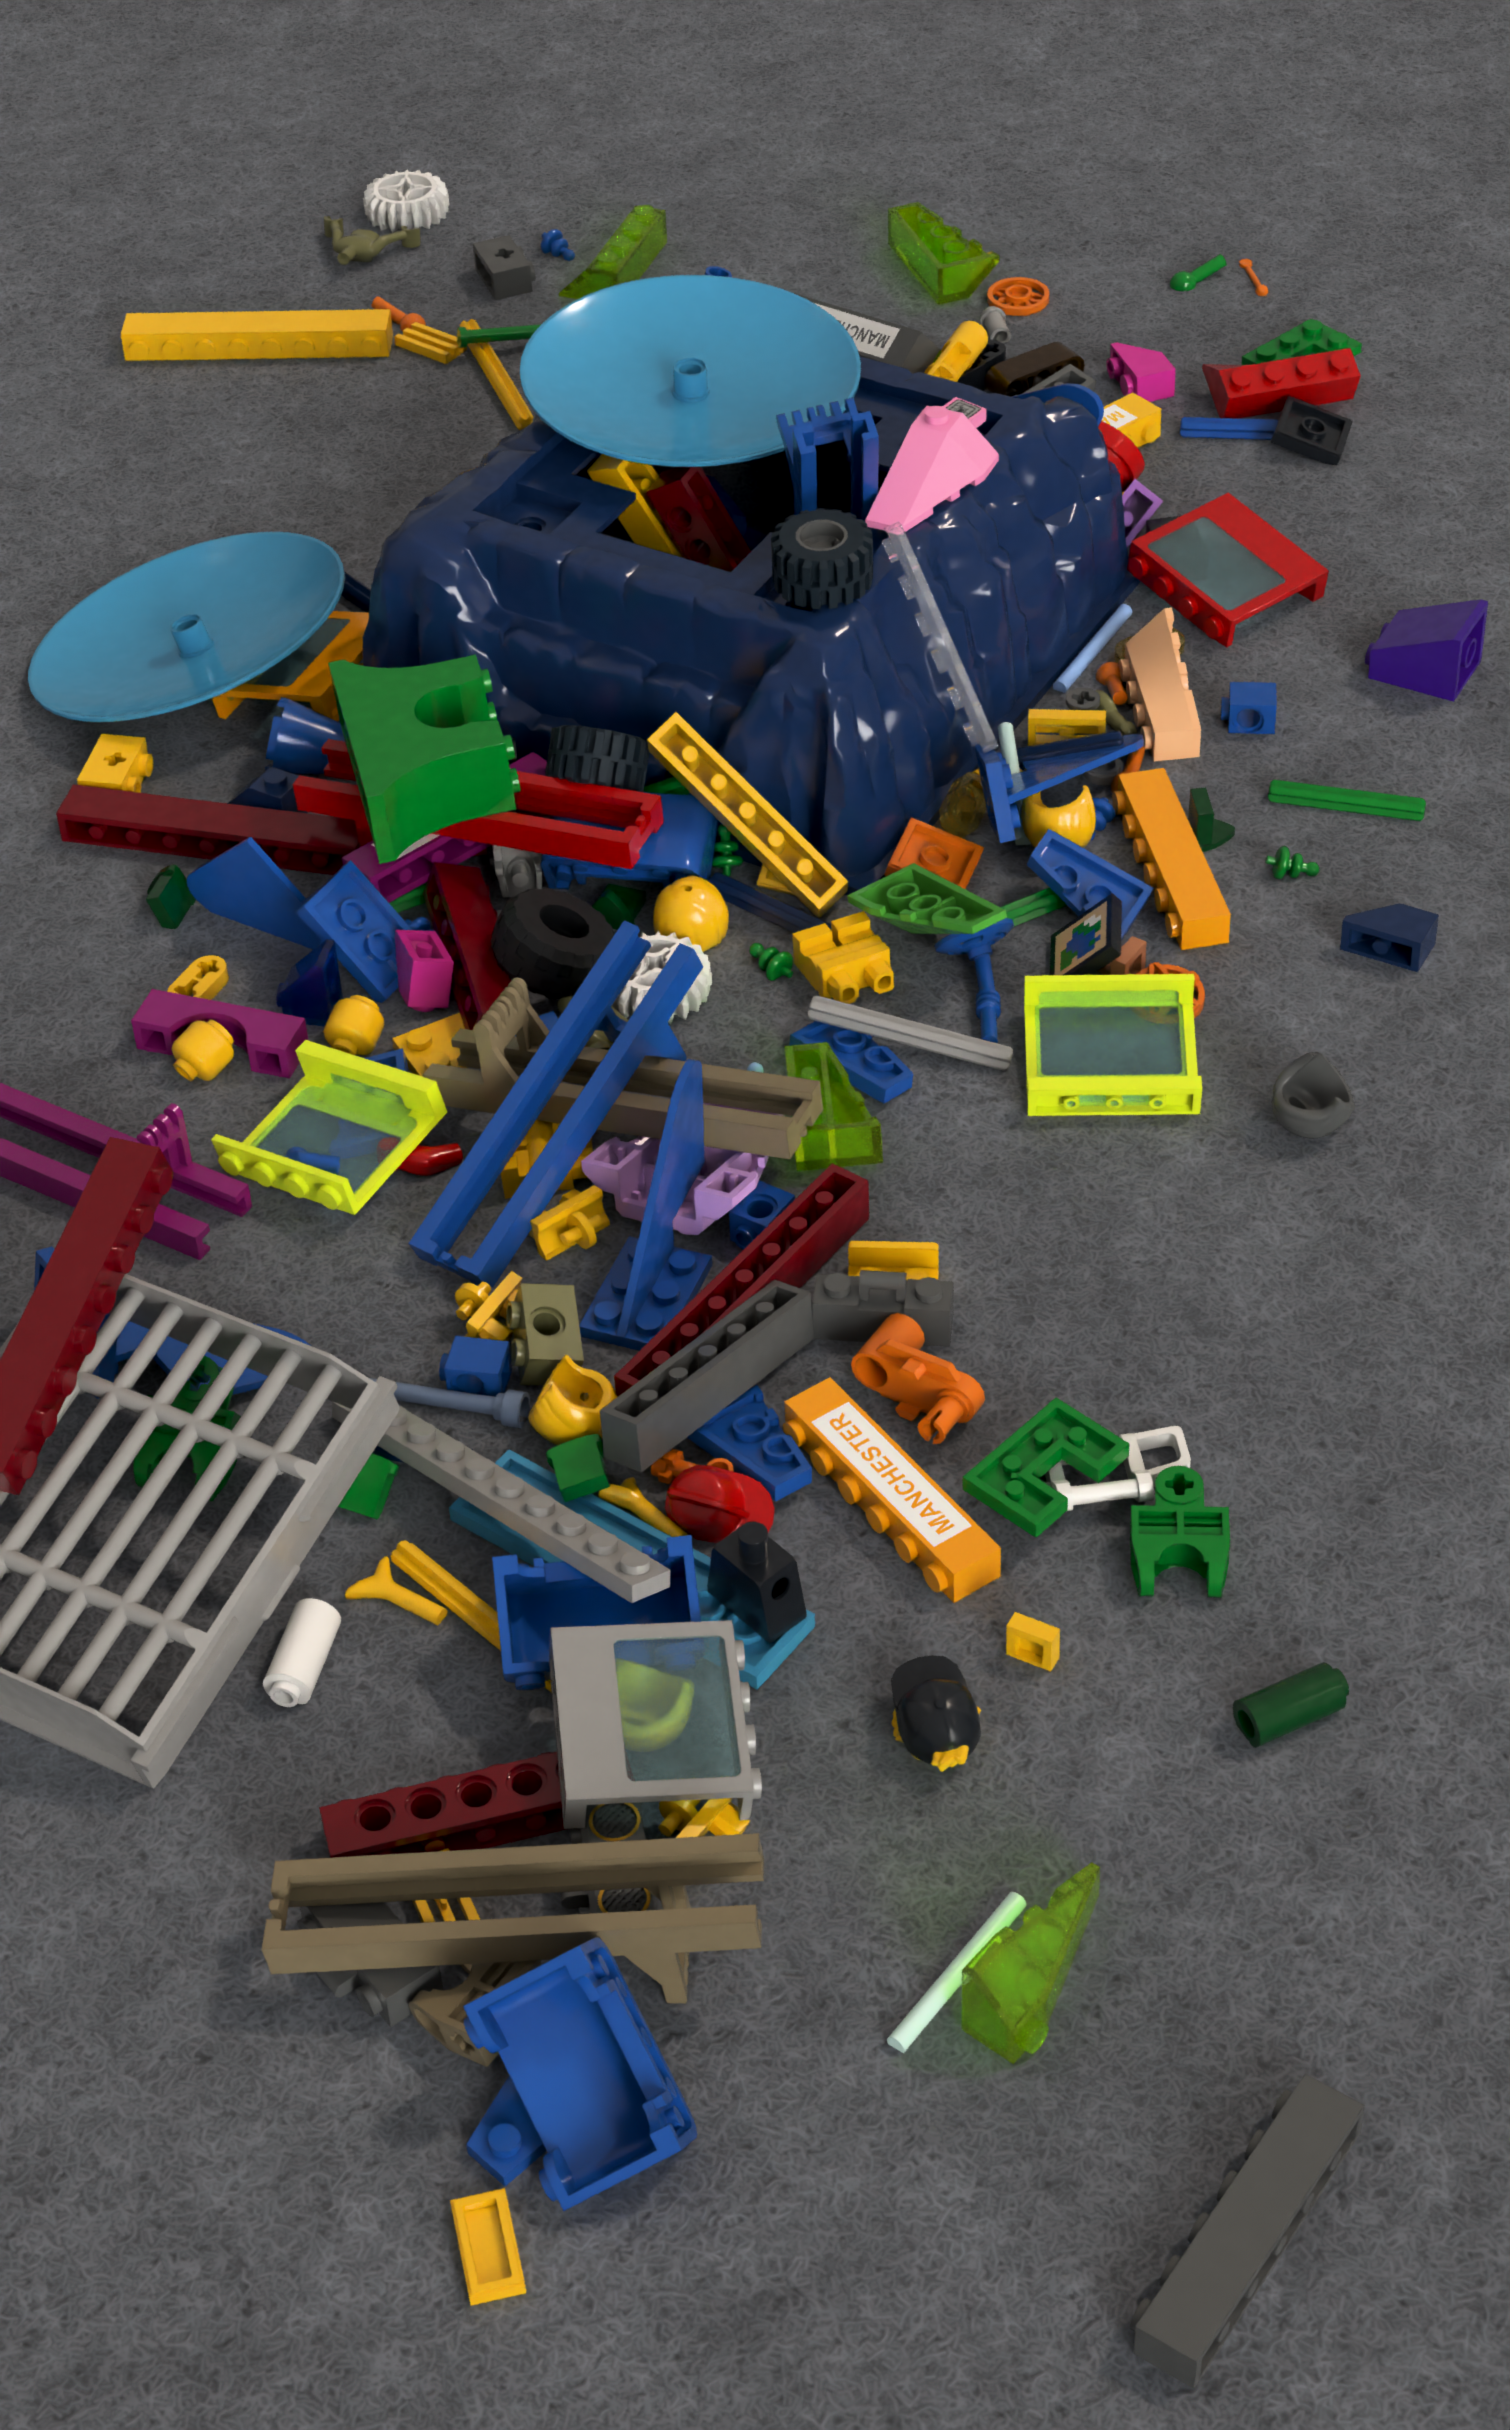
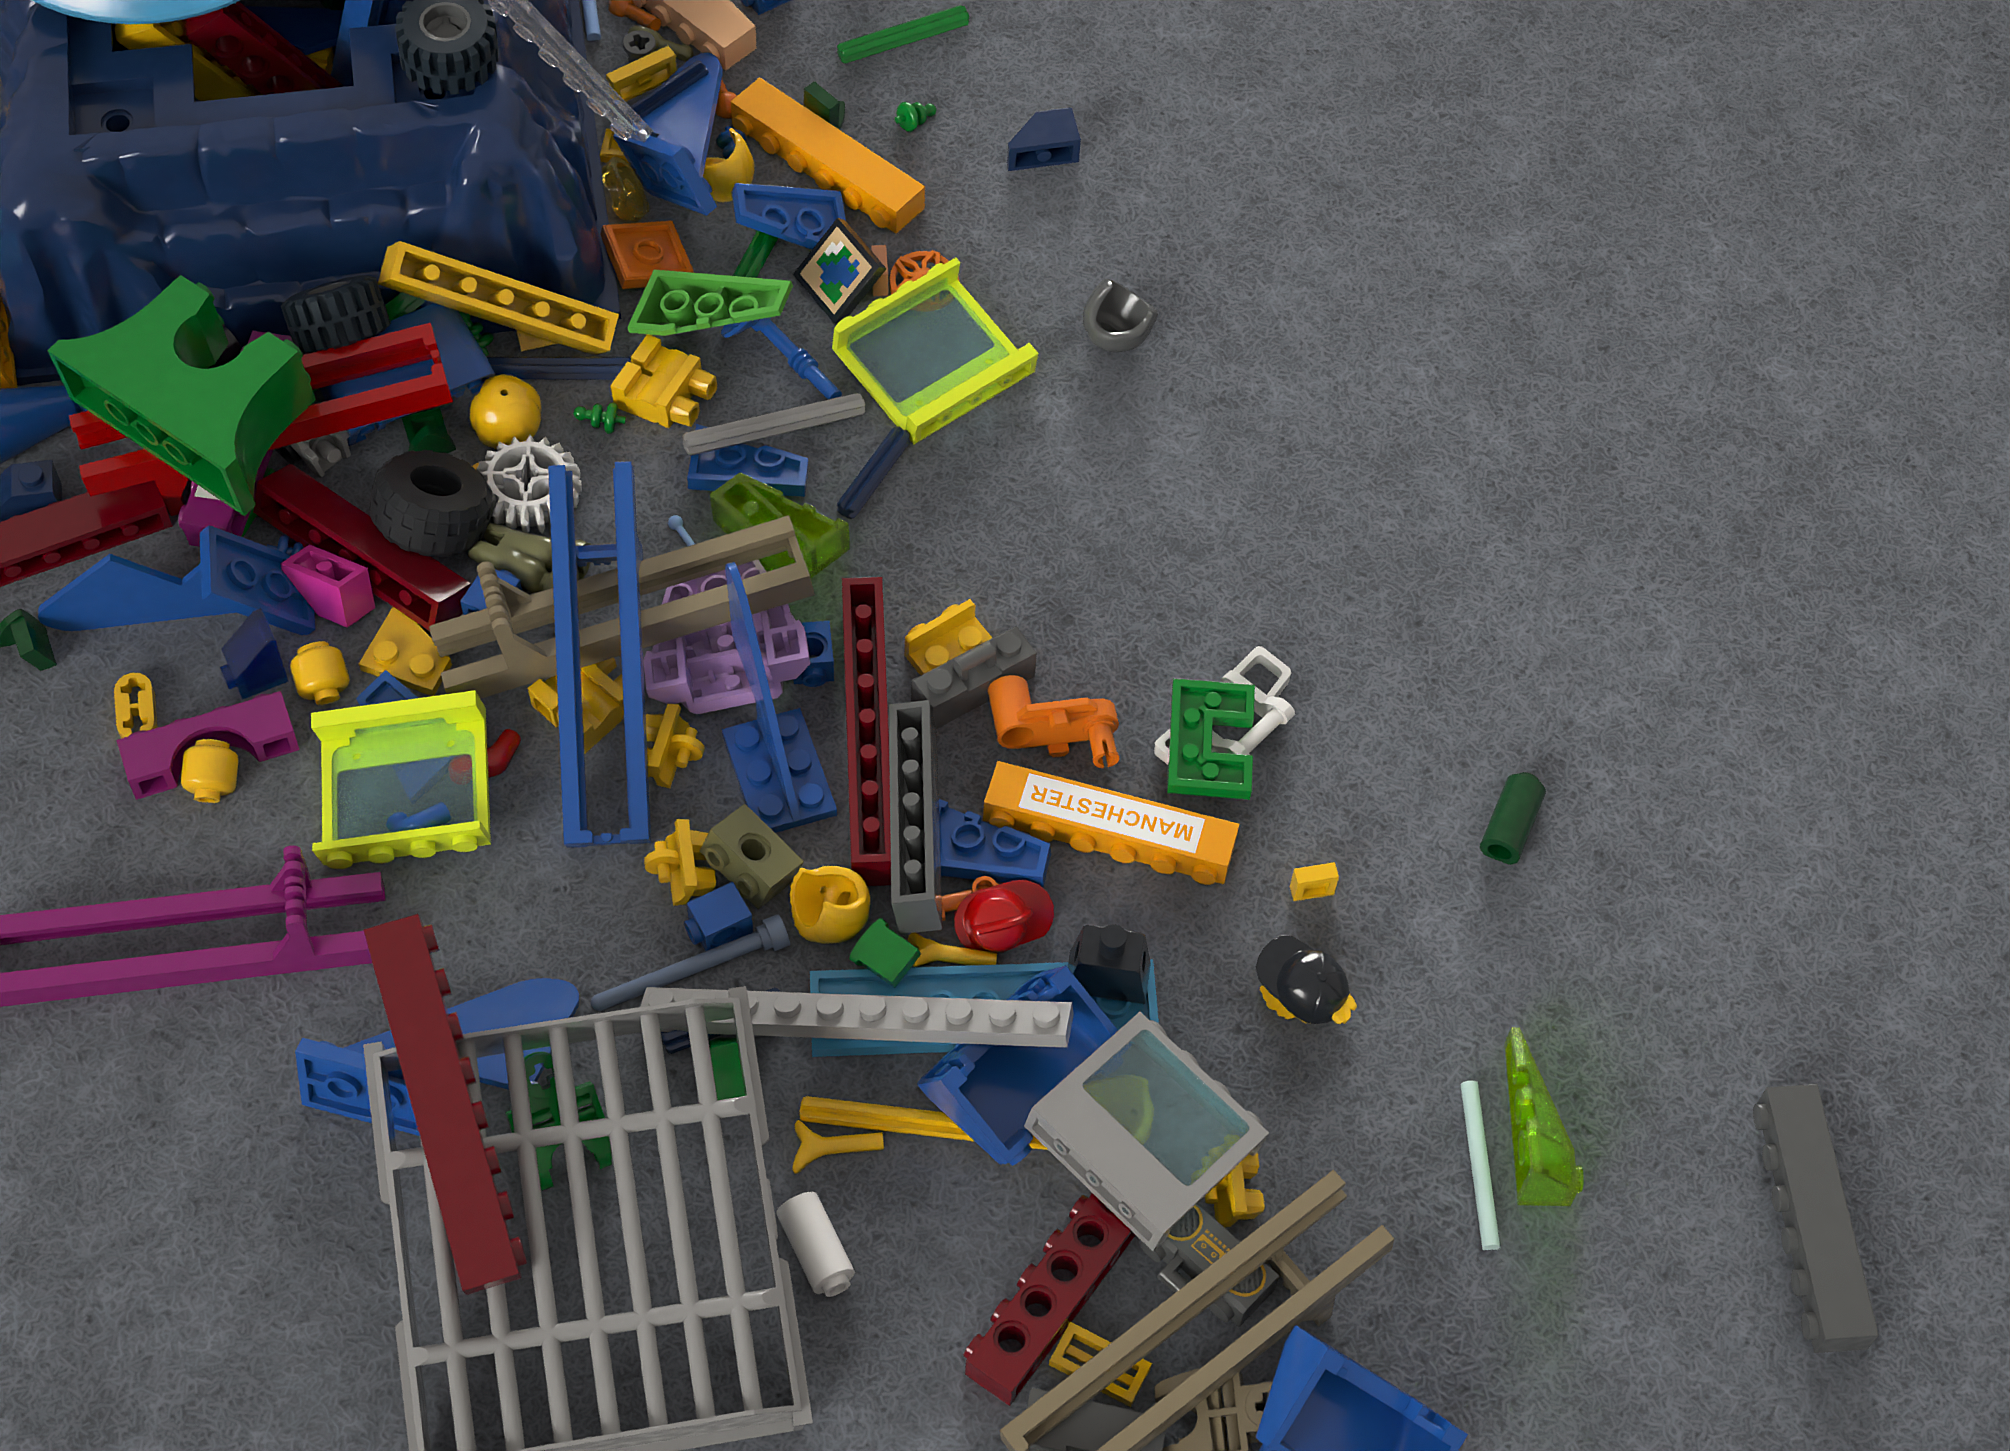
camera: 45 degrees left, 15 degrees up
(965, 1116) = (873, 472): none -> dark blue axle
(1179, 1533) = (1333, 729): green piece -> none

